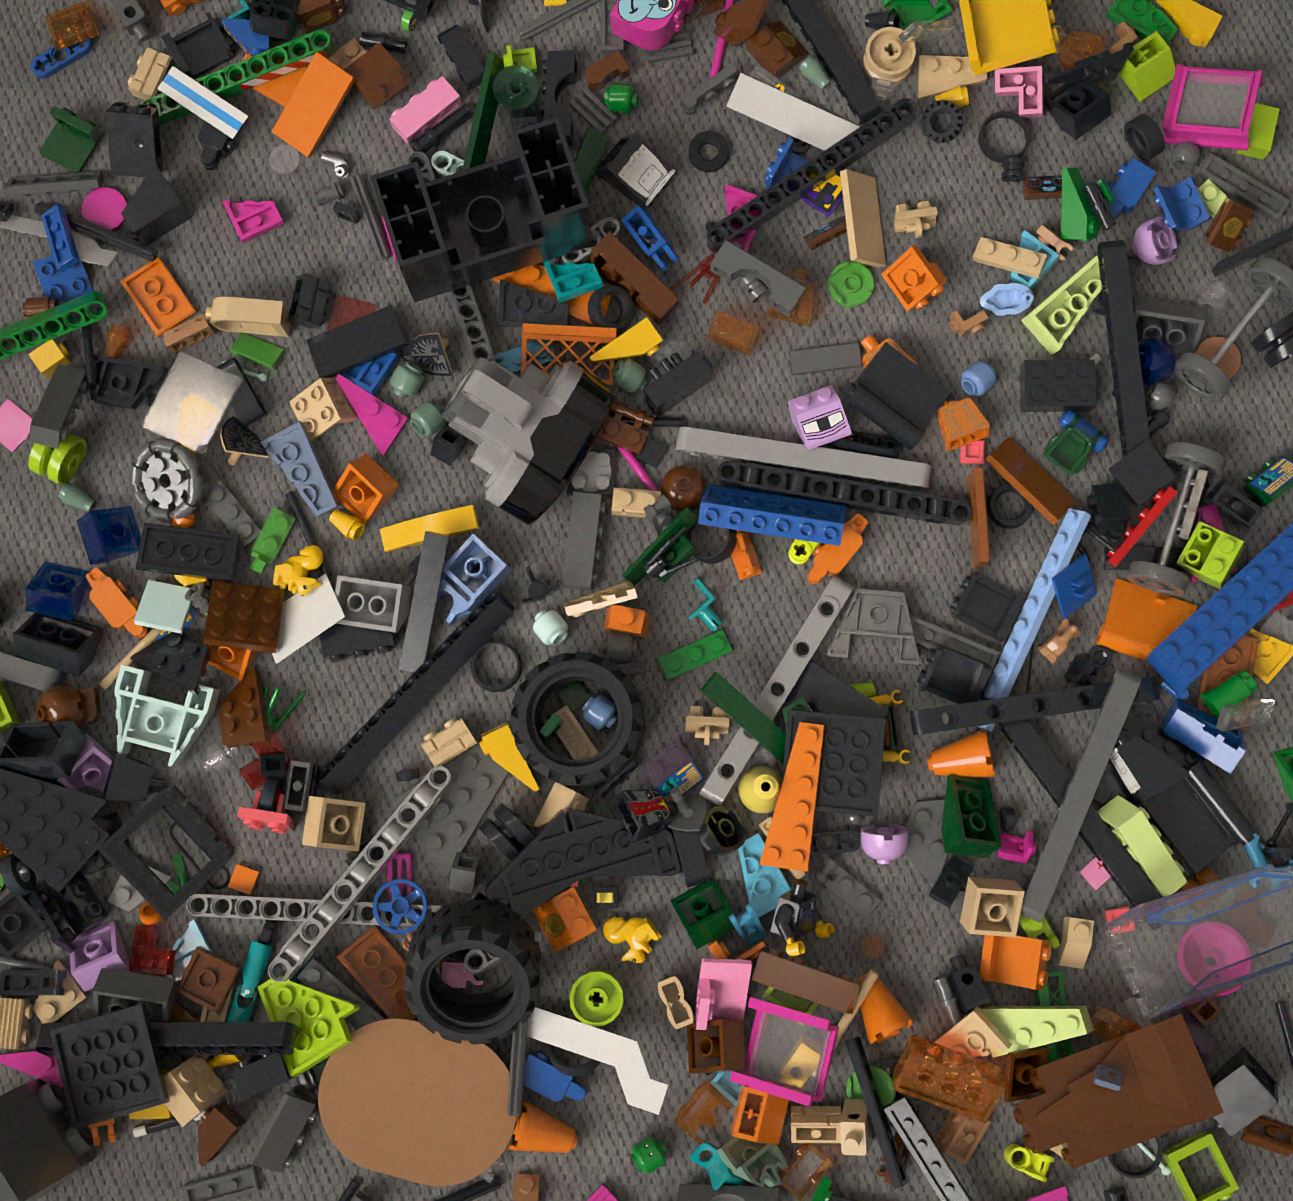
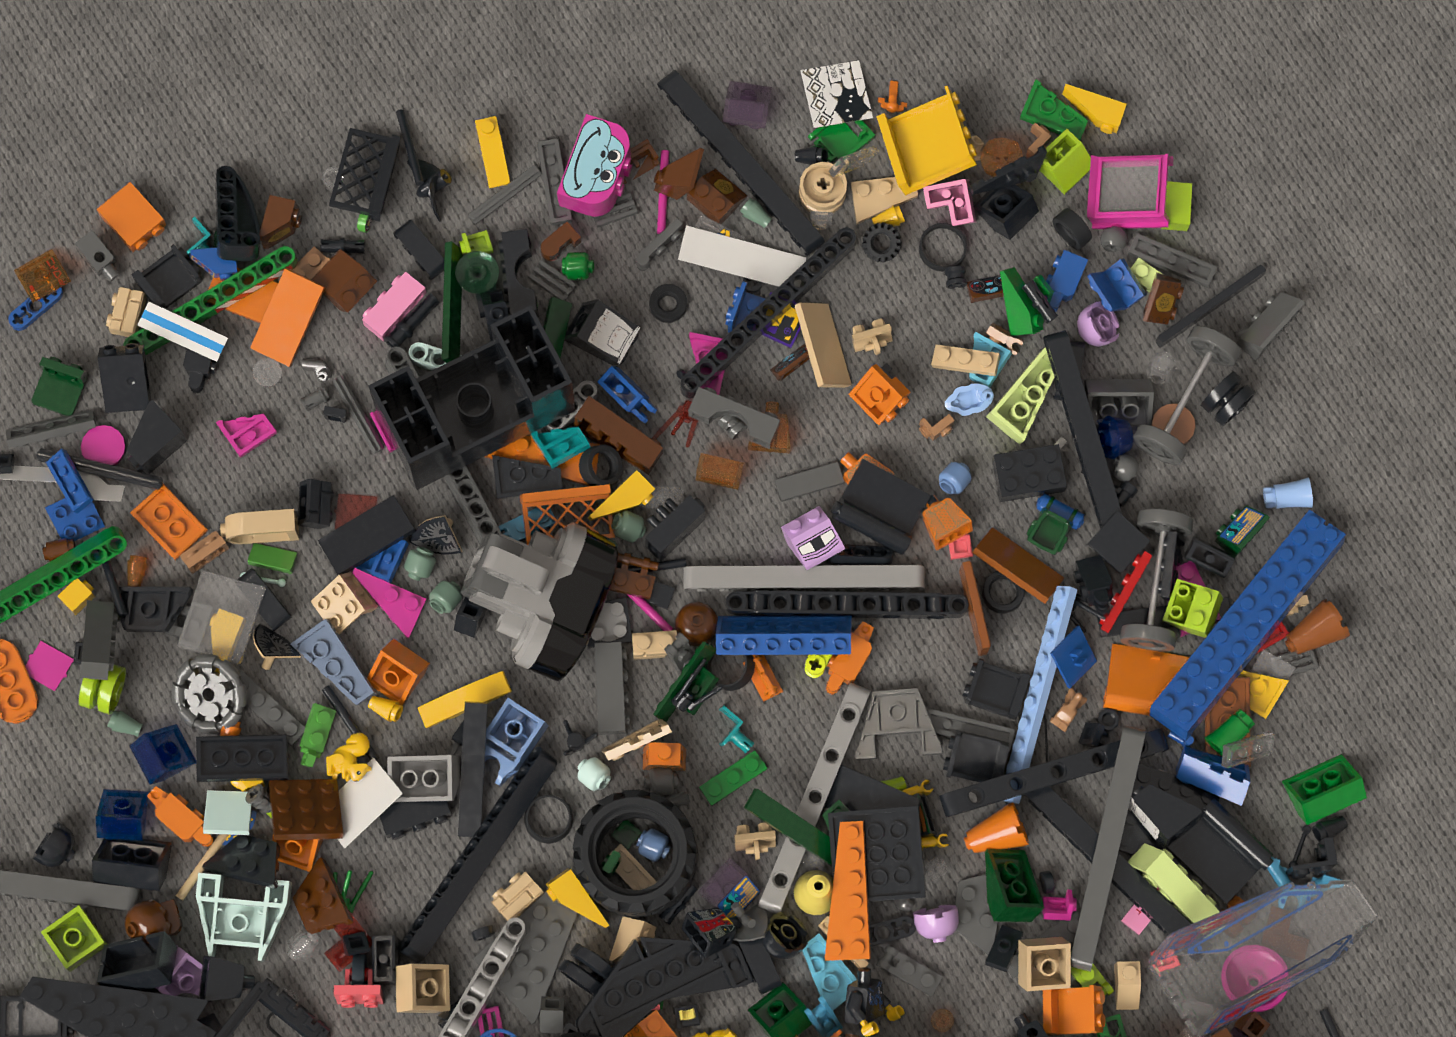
camera: 15 degrees left, 5 degrees down
(846, 289) = (817, 413): bright green tile -> none

